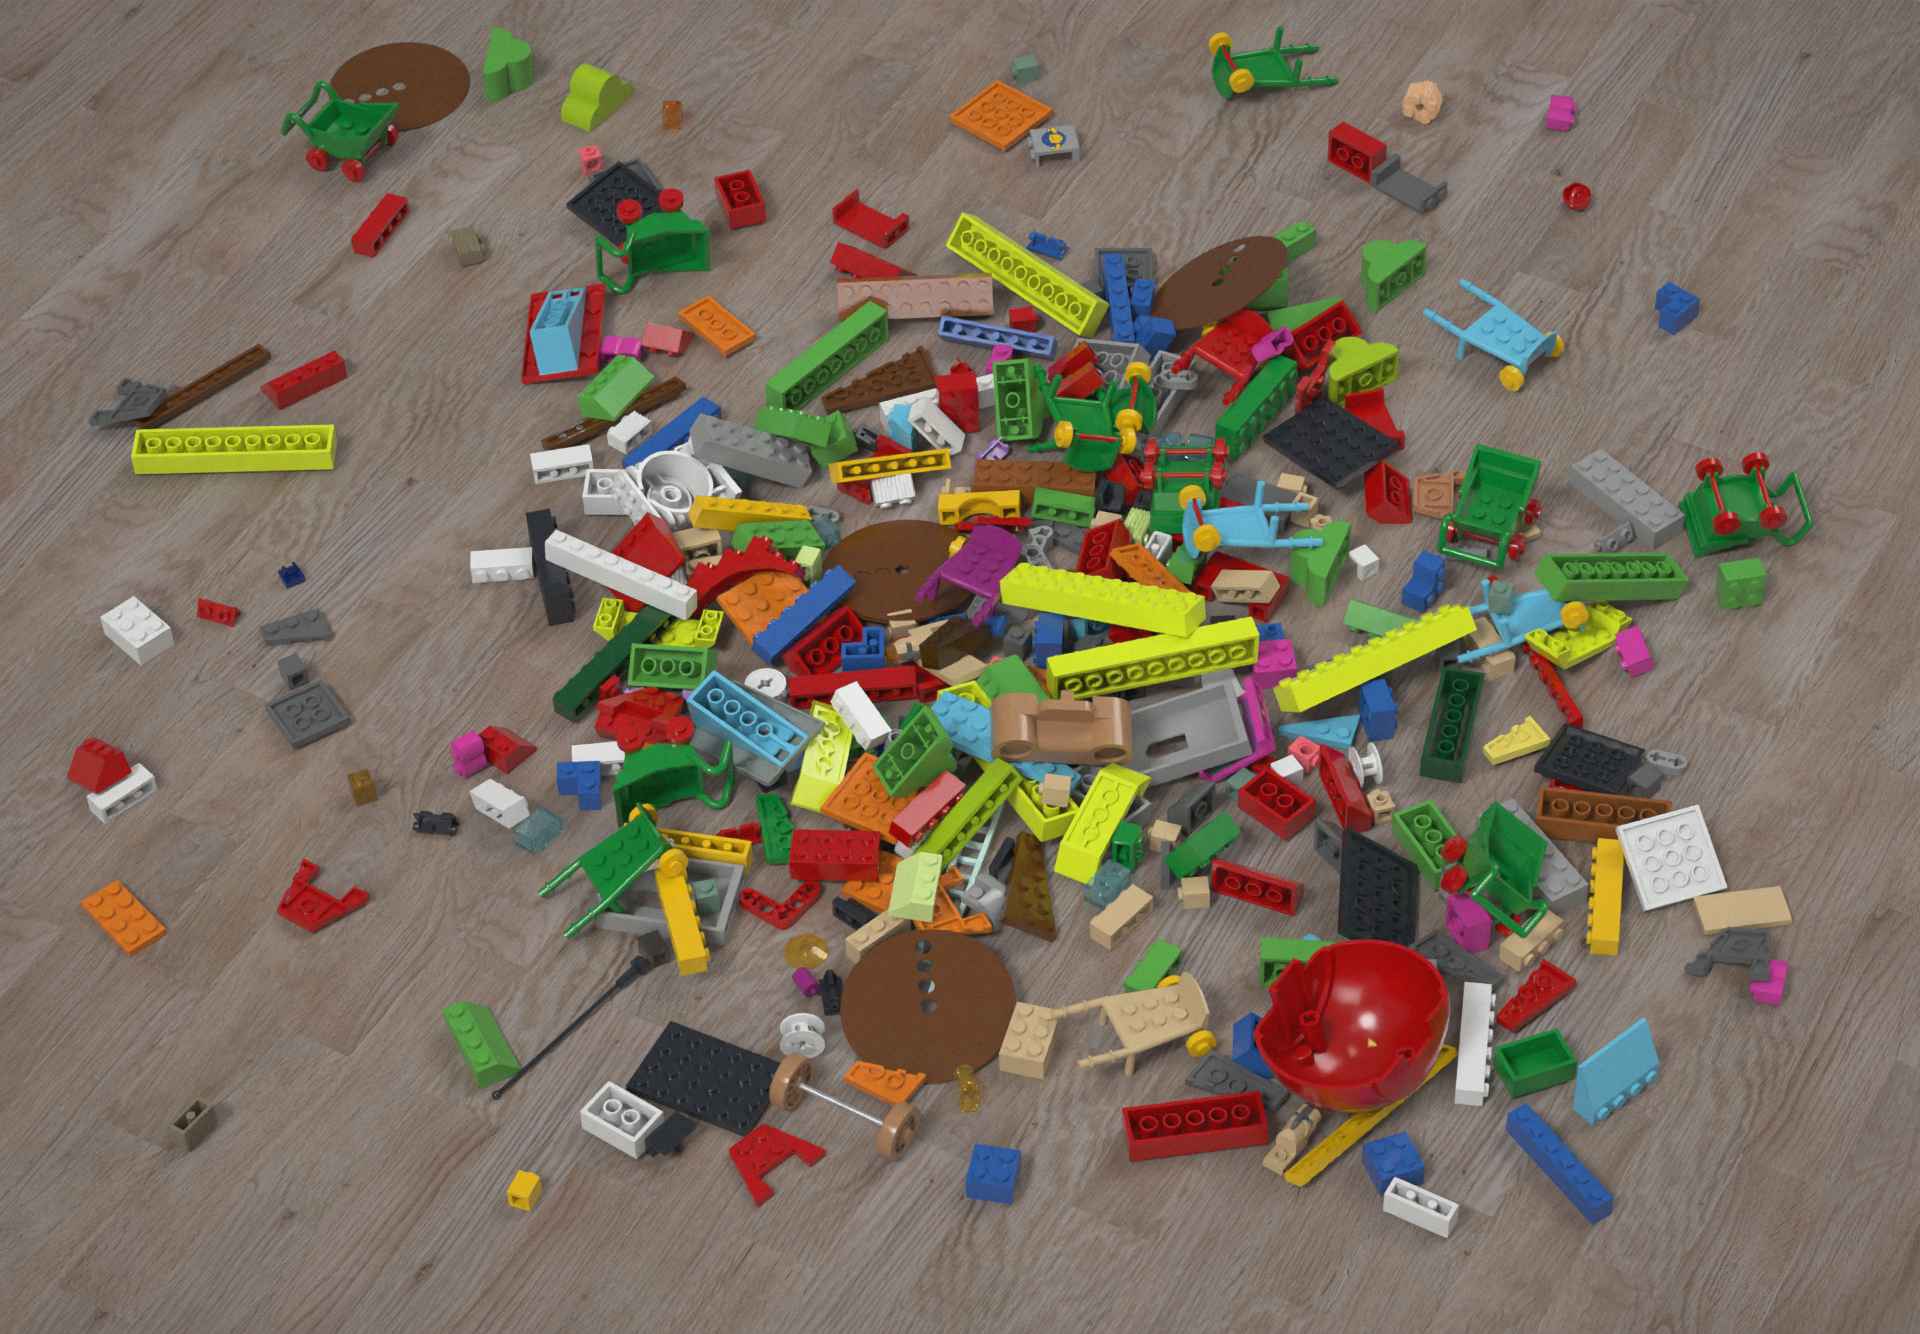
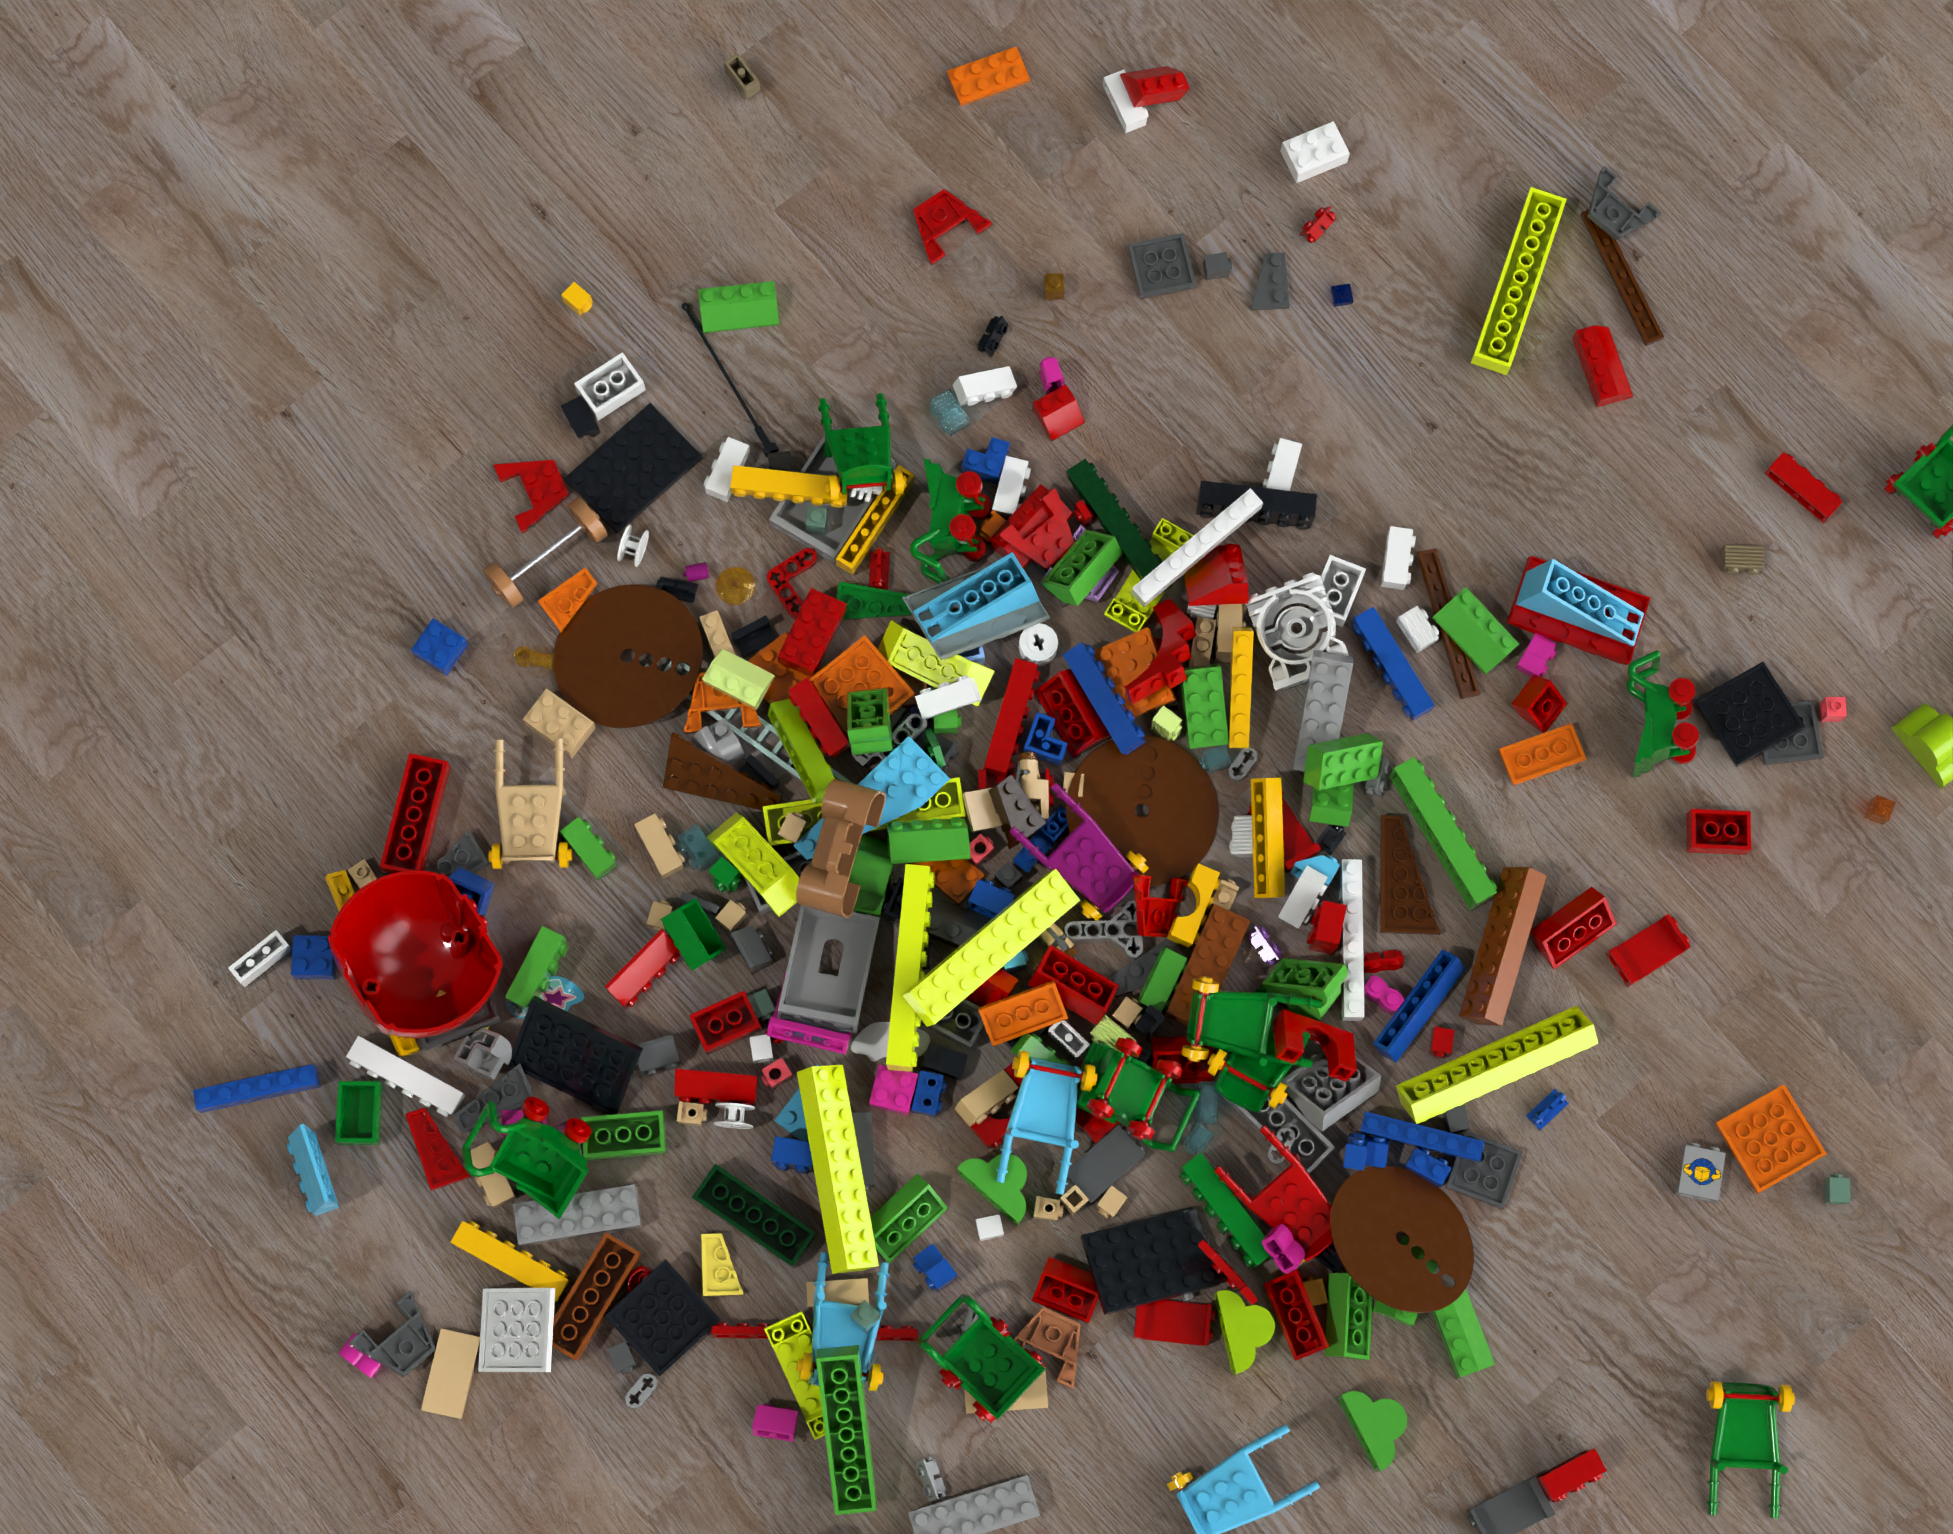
camera: 105 degrees right, 30 degrees up
(677, 992) = (731, 453): none -> white brick

